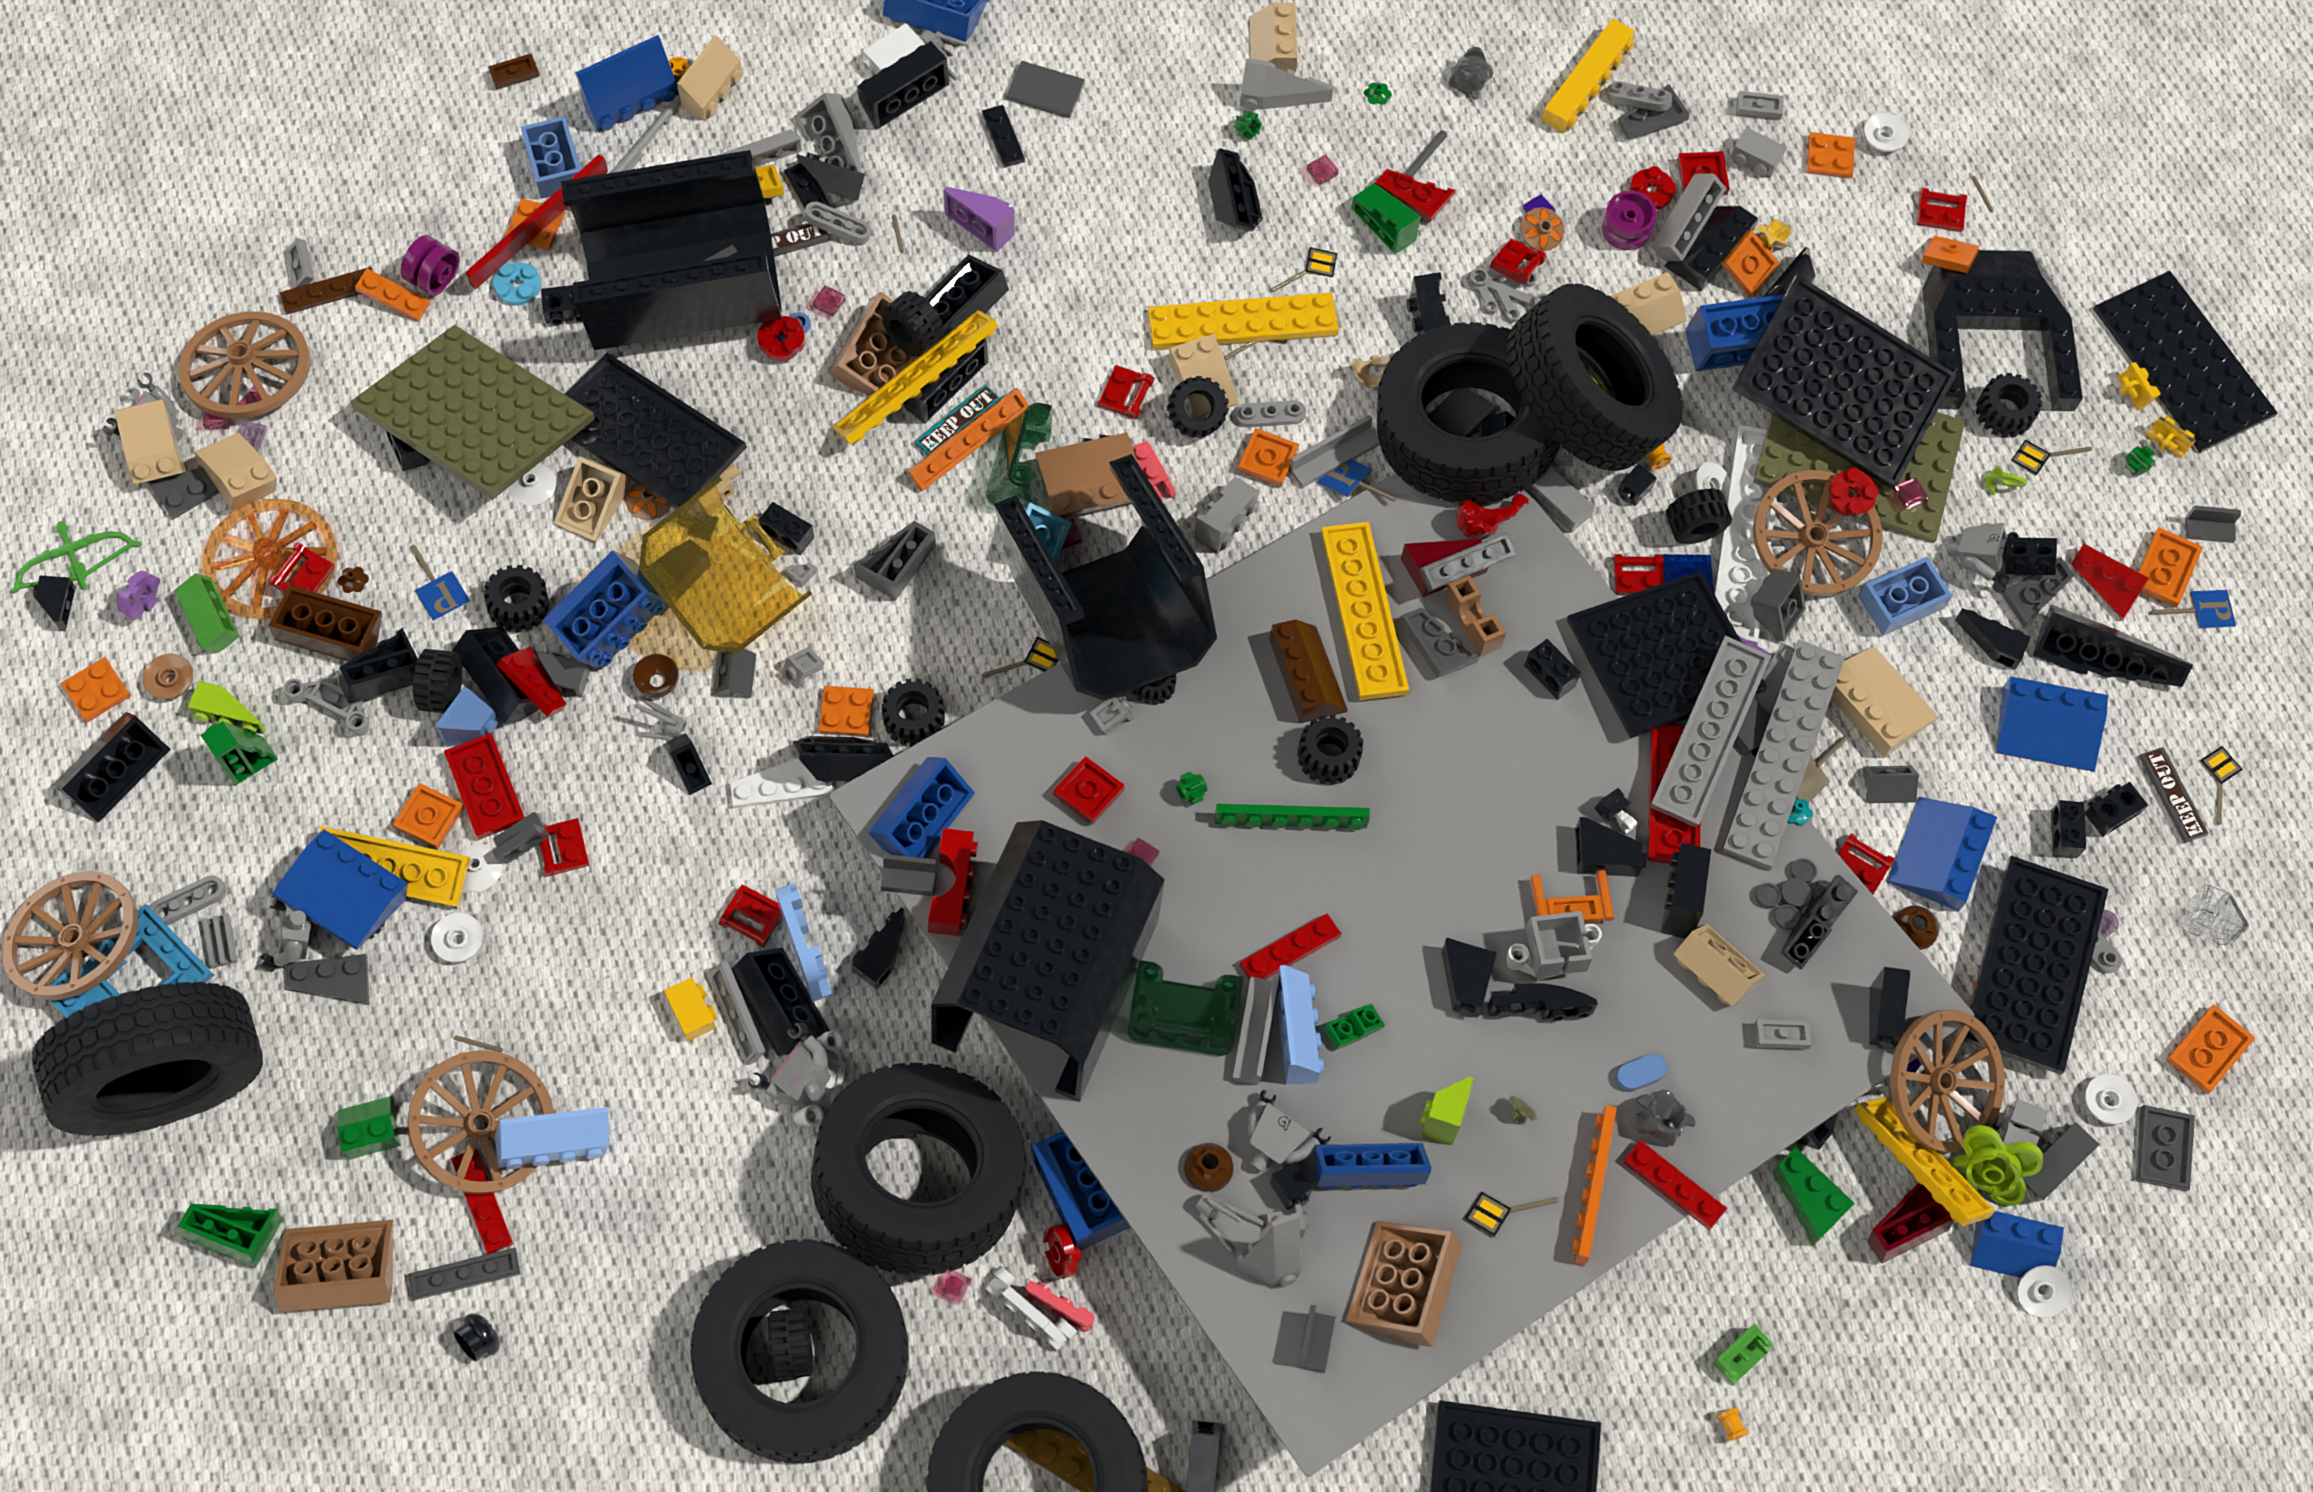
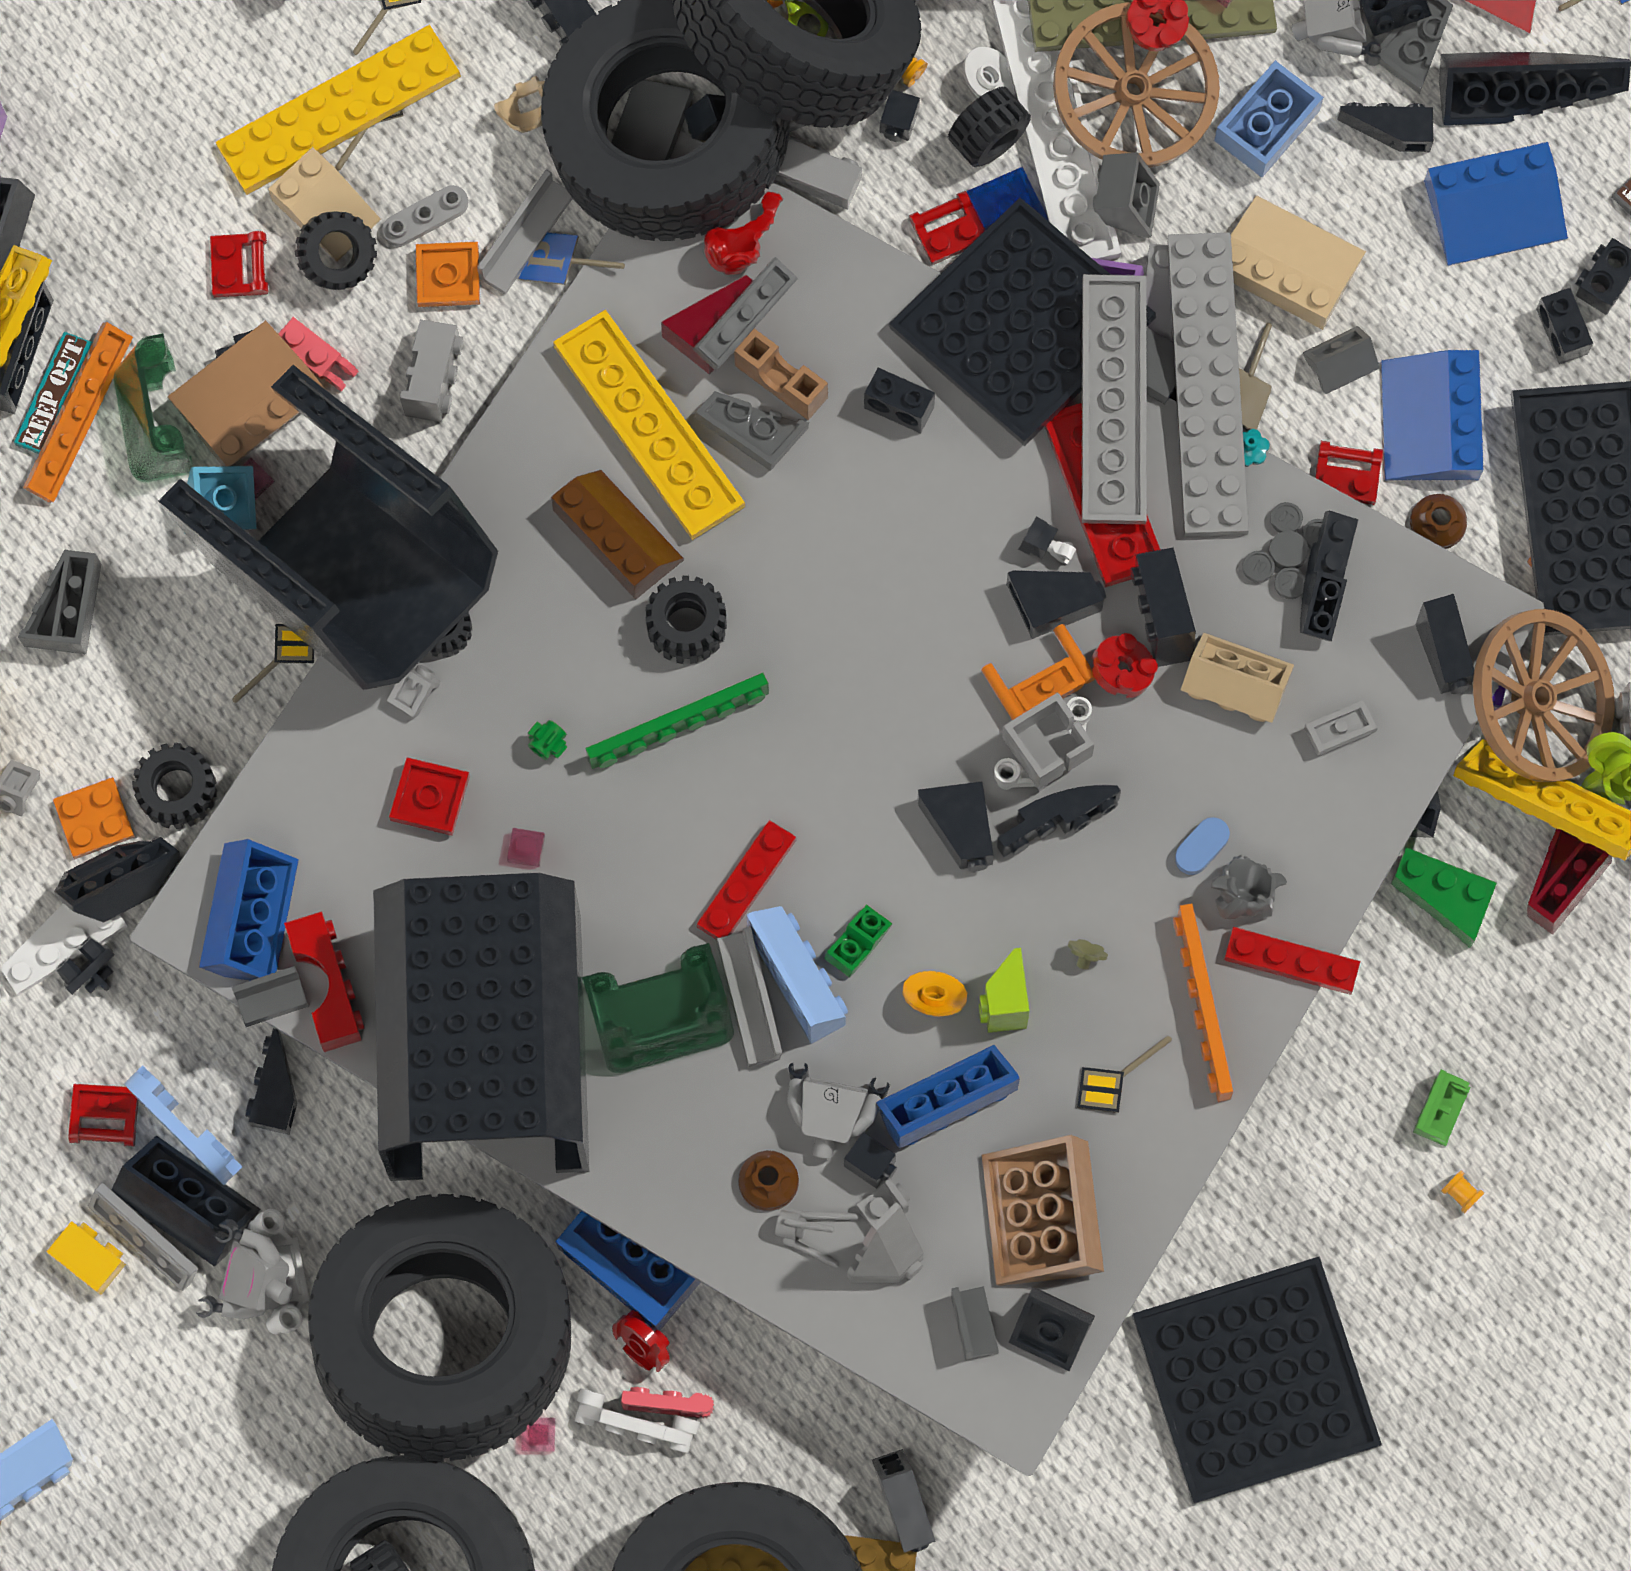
camera: 20 degrees left, 10 degrees up
(779, 810) = (97, 956): none -> black hips
(1373, 1370) = (1051, 1328): none -> black bracket
(1394, 1087) = (934, 993): none -> light orange dish
(1645, 910) = (1134, 654): none -> red plate

